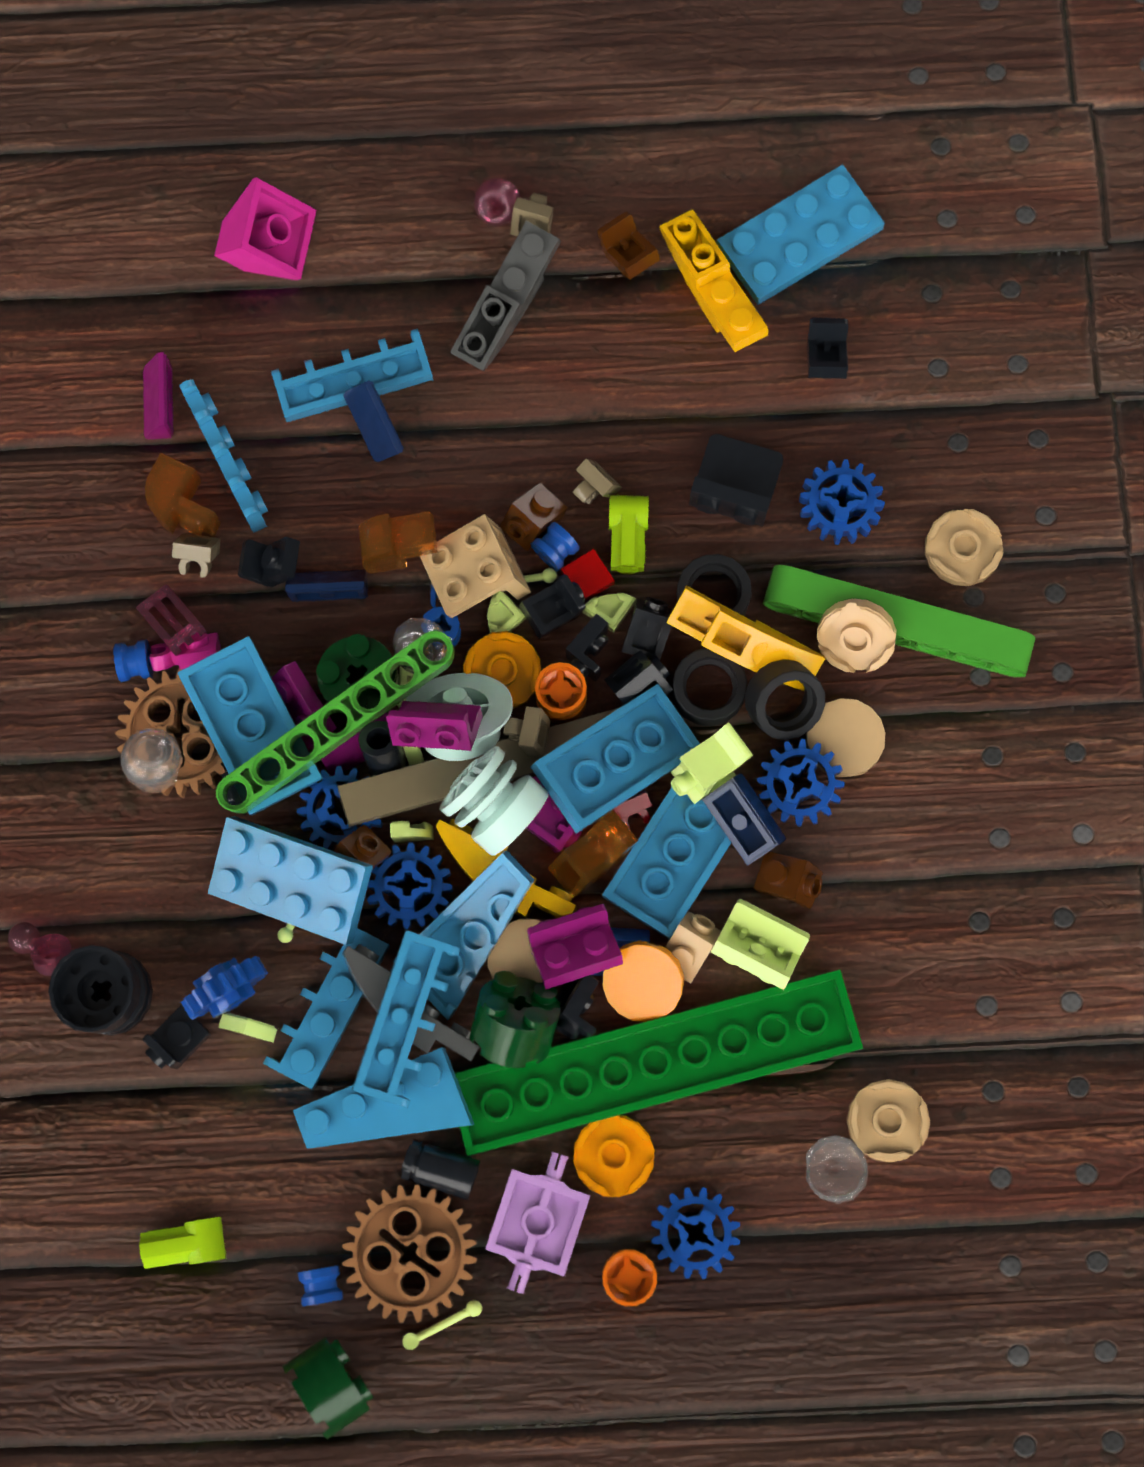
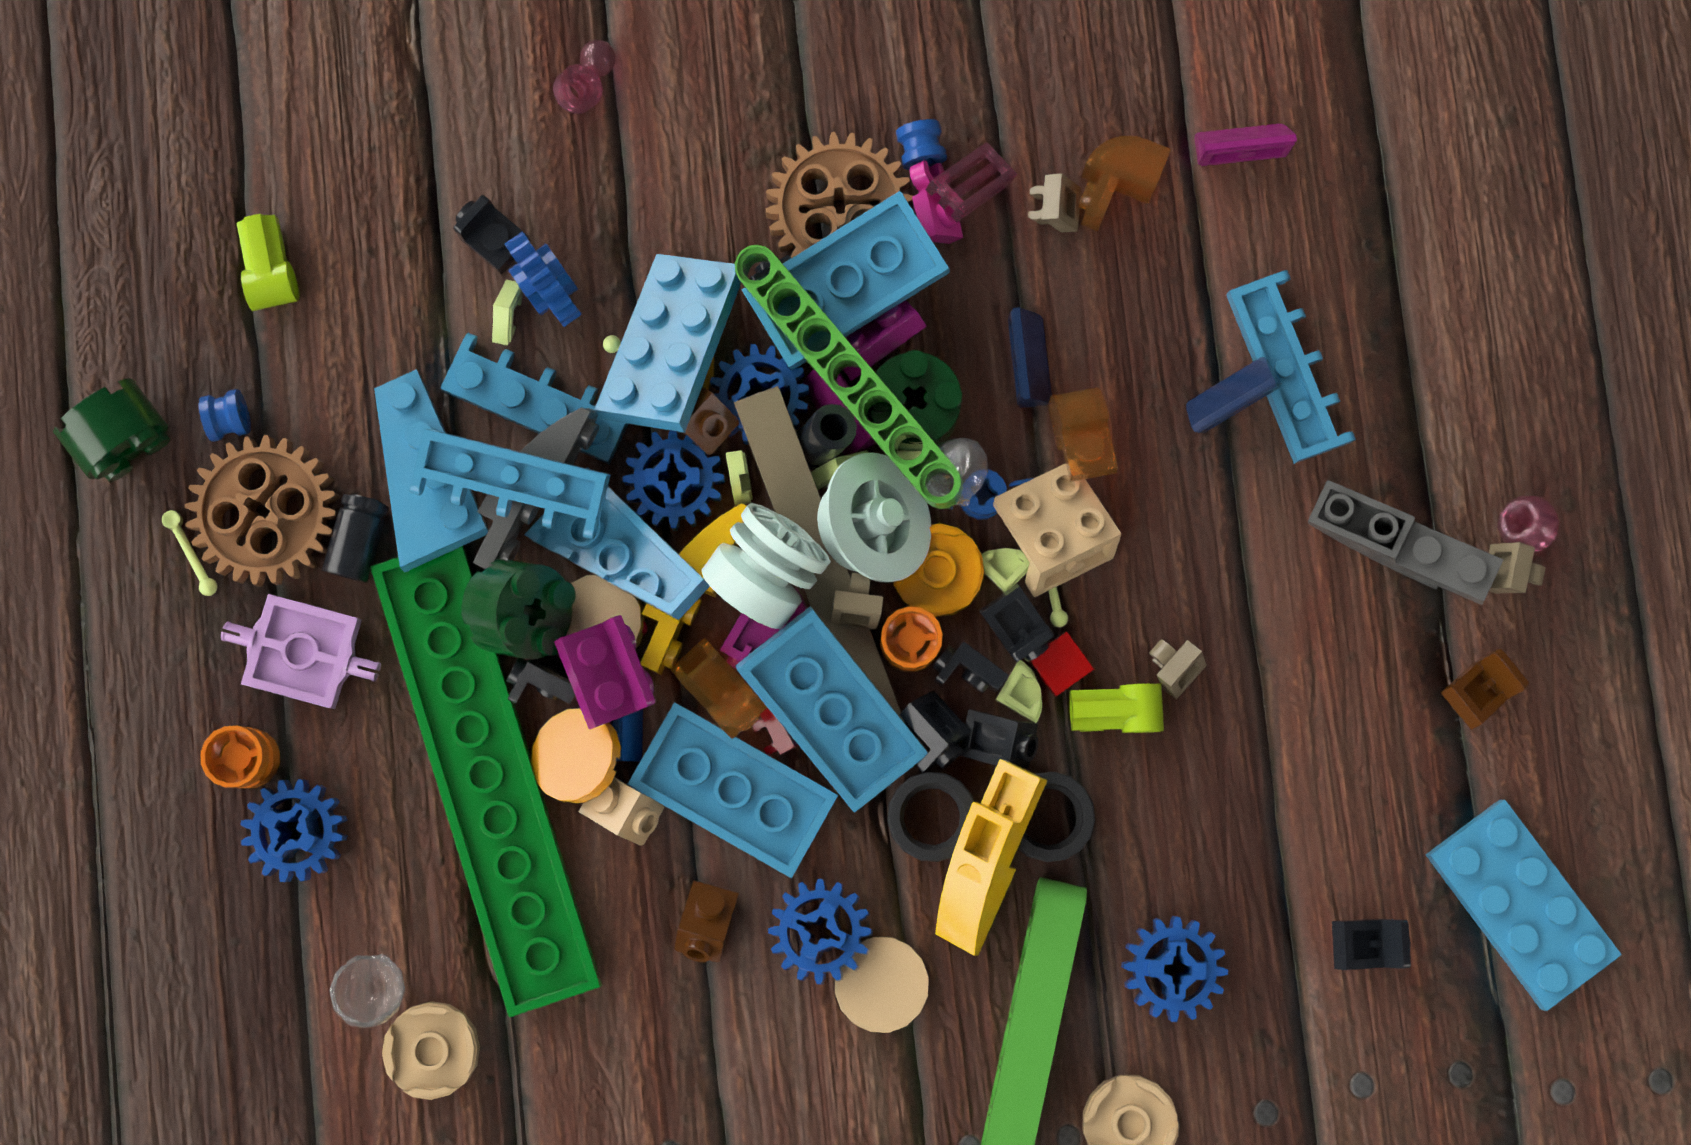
camera: 85 degrees right, 5 degrees up
(78, 990) = (529, 121): black wheel -> none
(151, 760) = (800, 173): clear hair -> none
(220, 442) = (1191, 217): dark azure hinge -> none
(266, 232) = (1463, 250): dark pink slope -> none
(269, 563) = (1049, 286): black bracket -> none
(434, 725) = (850, 490): magenta bracket -> none
(532, 515) = (1130, 594): reddish brown bracket -> none
(555, 546) = (1093, 622): blue wheel -> none
(614, 1156) = (378, 734): light orange tile -> none
(710, 764) = (828, 819): yellowish green piece -> none
(711, 281) = (1448, 796): yellow slope -> none
(736, 480) = (1193, 837): black bracket -> none
(744, 819) = (771, 866): dark blue slope -> none
(761, 943) = (624, 891): yellowish green bracket -> none
(805, 715) = (894, 922): black tyre -> none
(856, 635) = (1003, 992): tan tile -> none

